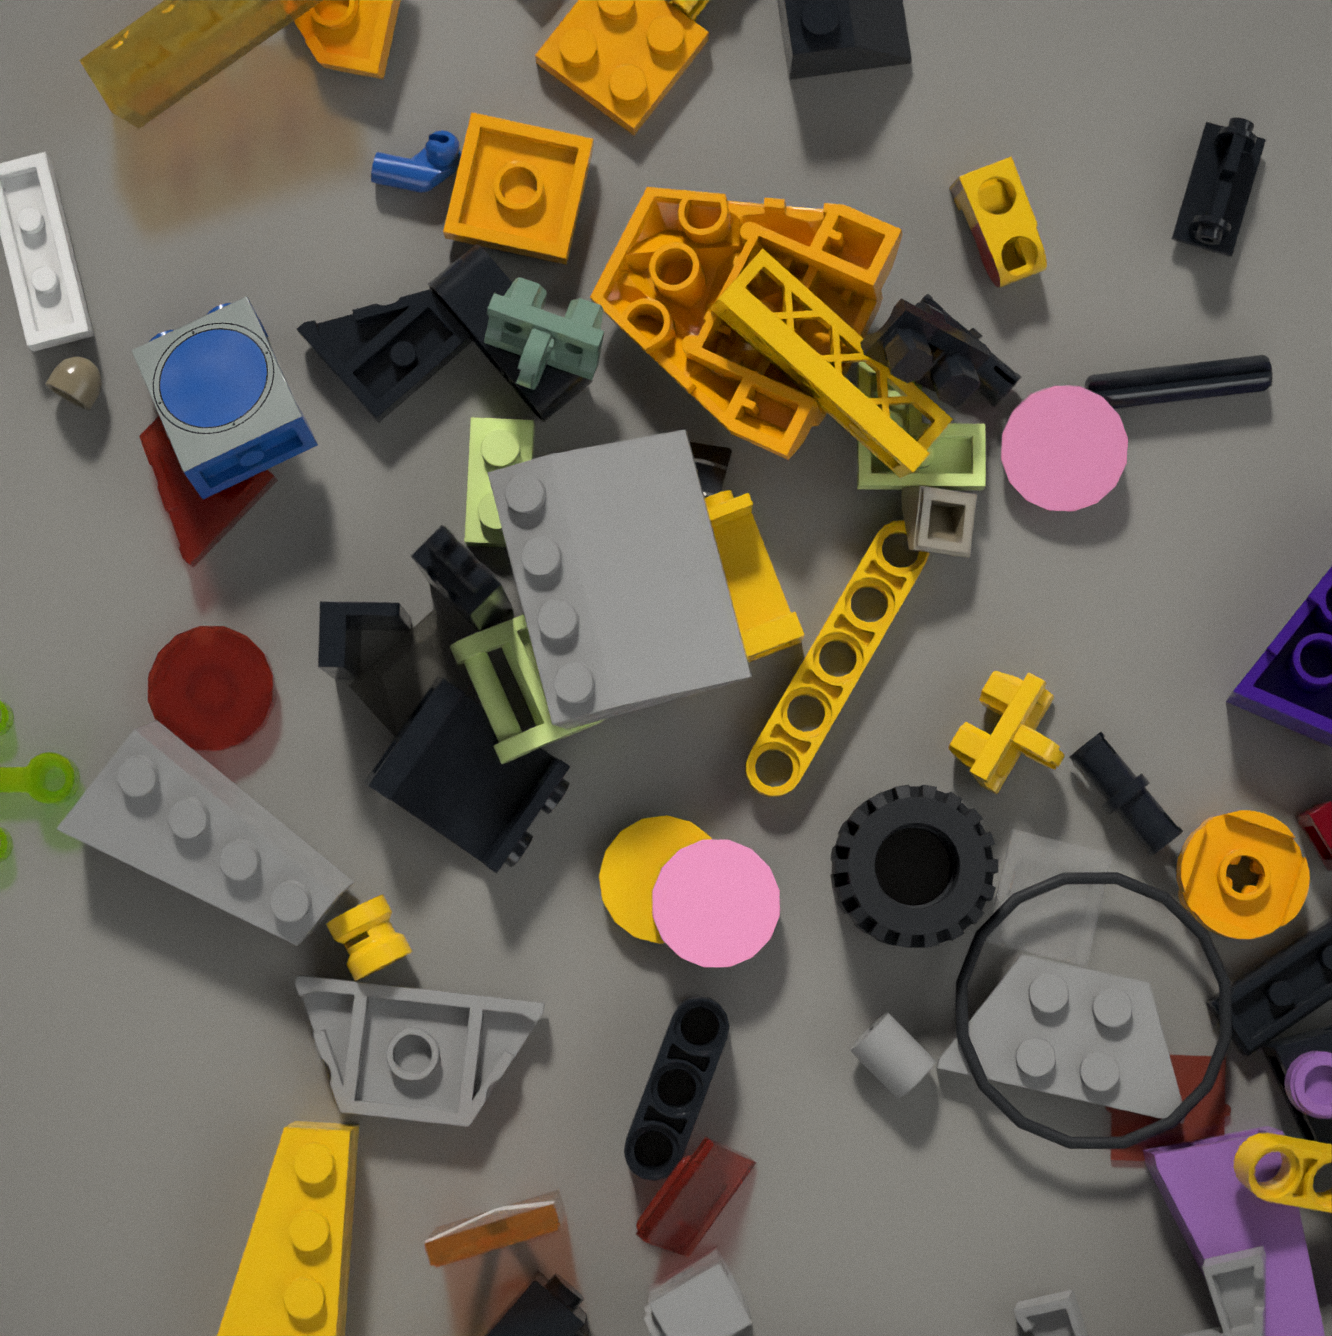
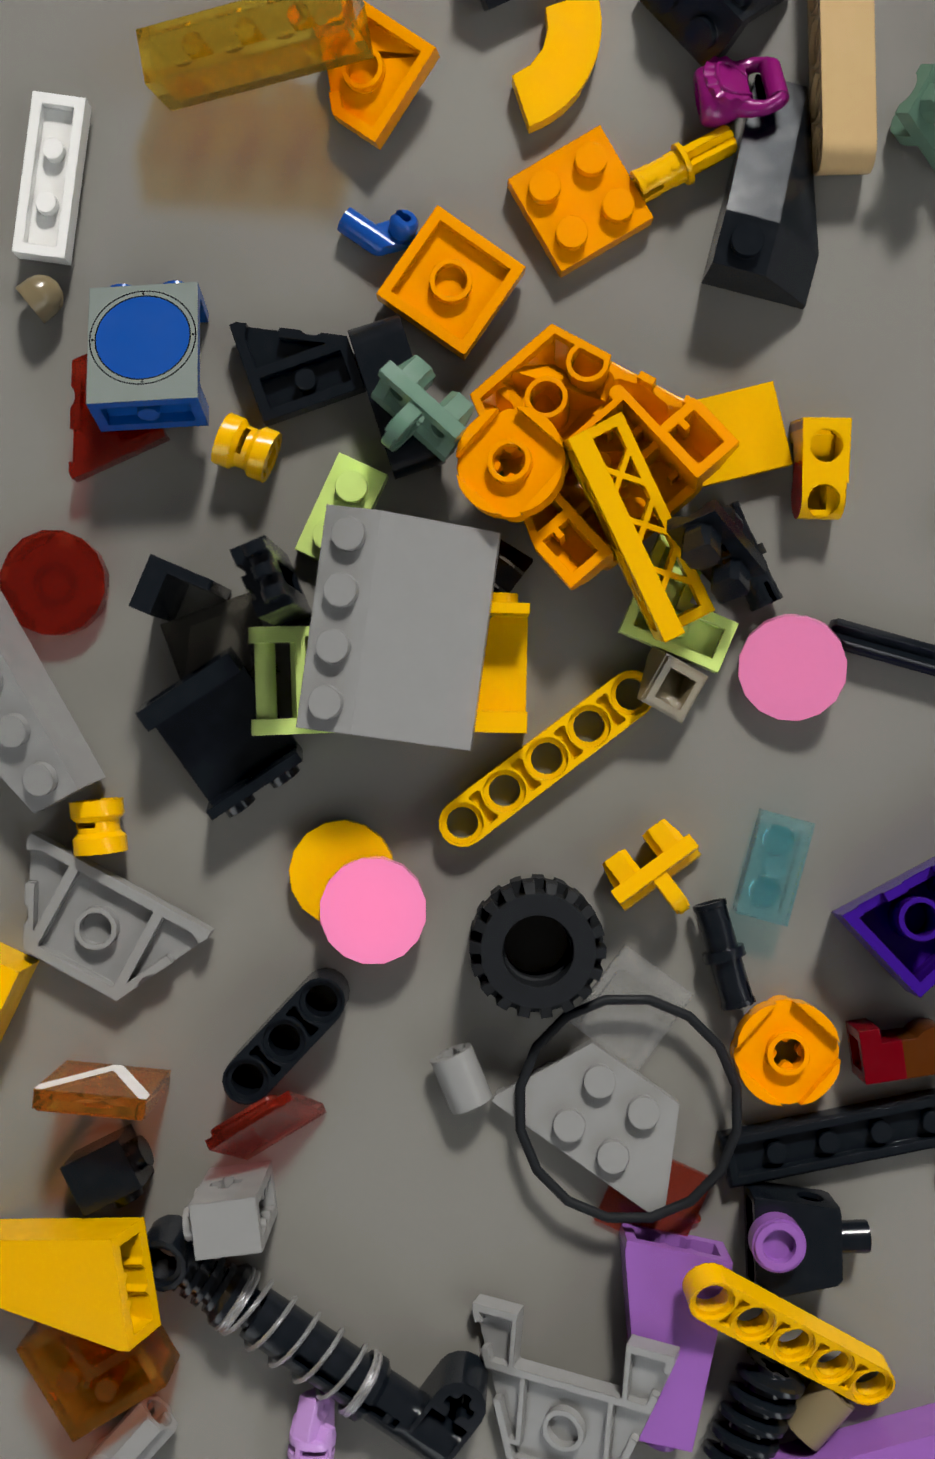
camera: 30 degrees right, 5 degrees up
(379, 445) = (246, 447): none -> yellow wheel
(651, 318) = (511, 431): none -> light orange plate
(912, 202) = (757, 424): none -> yellow piece
(1138, 674) = (773, 867): none -> clear light blue plate

